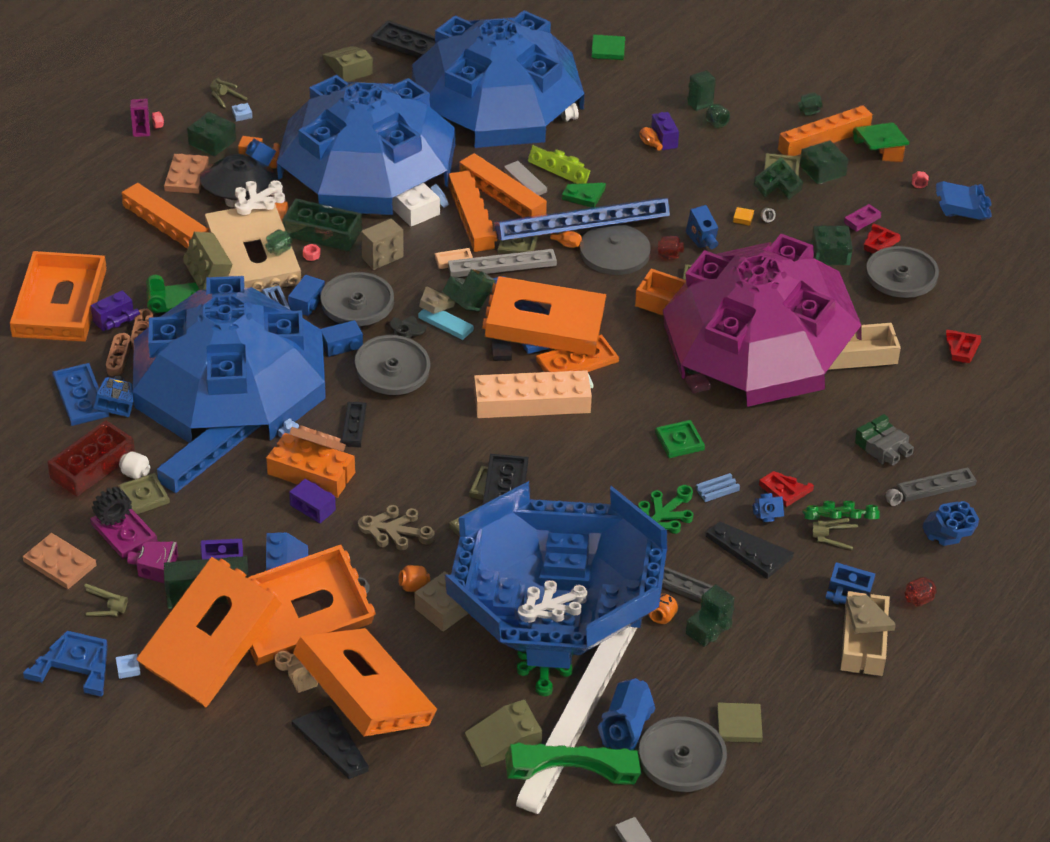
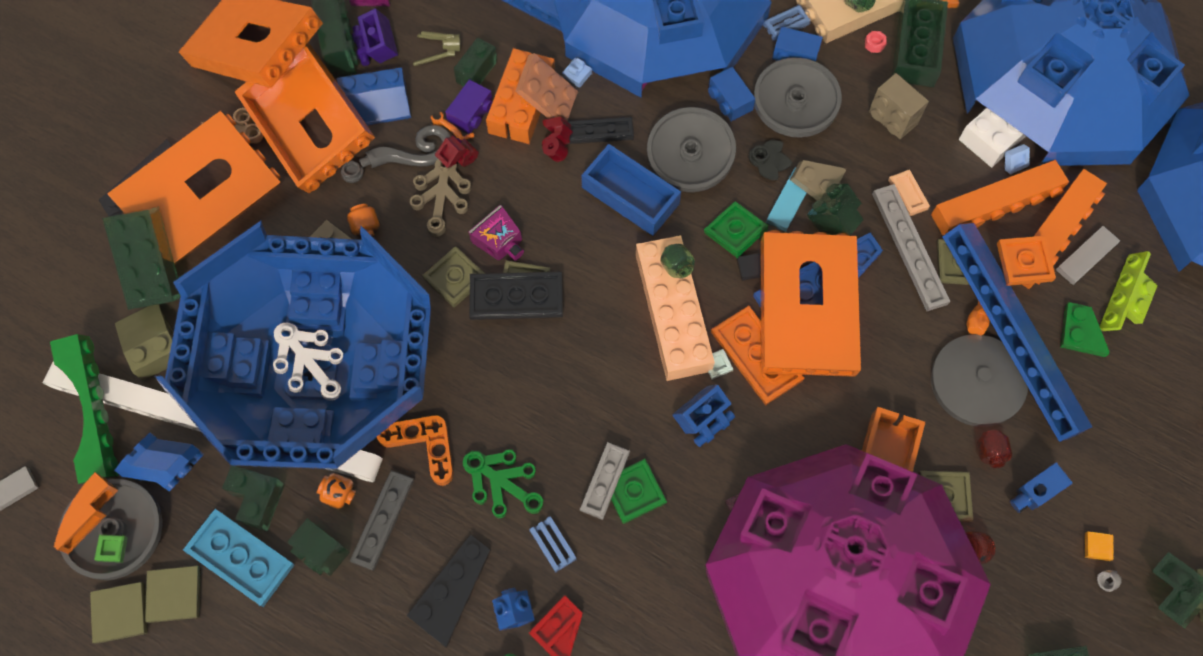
camera: 85 degrees right, 25 degrees up
(238, 511) = (450, 42): none -> olive plant
(269, 491) = (476, 62): none -> clear green brick
(318, 523) = (443, 122): none -> orange piece
(346, 523) = (387, 154): none -> dark grey plant
(362, 505) = (456, 150): none -> dark red leg
(368, 447) = (555, 144): none -> dark red leg
(422, 404) = (631, 189): none -> blue piece
(432, 713) = (142, 257): none -> clear green brick
(445, 492) = (497, 235): none -> magenta torso
(468, 353) = (736, 229): none -> green tile
(503, 371) = (677, 261): none -> clear green head
(532, 199) = (1026, 260): none -> orange plate
(623, 387) = (702, 410): none -> blue brick
(662, 656) = (259, 496): none -> clear green brick
(670, 757) = (84, 512): none -> orange slope
(672, 448) = (605, 480): none -> light grey tile
(702, 745) = (111, 548): none -> bright green tile
(712, 675) = (239, 557): none -> dark azure plate
(752, 759) = (118, 612): none -> olive tile

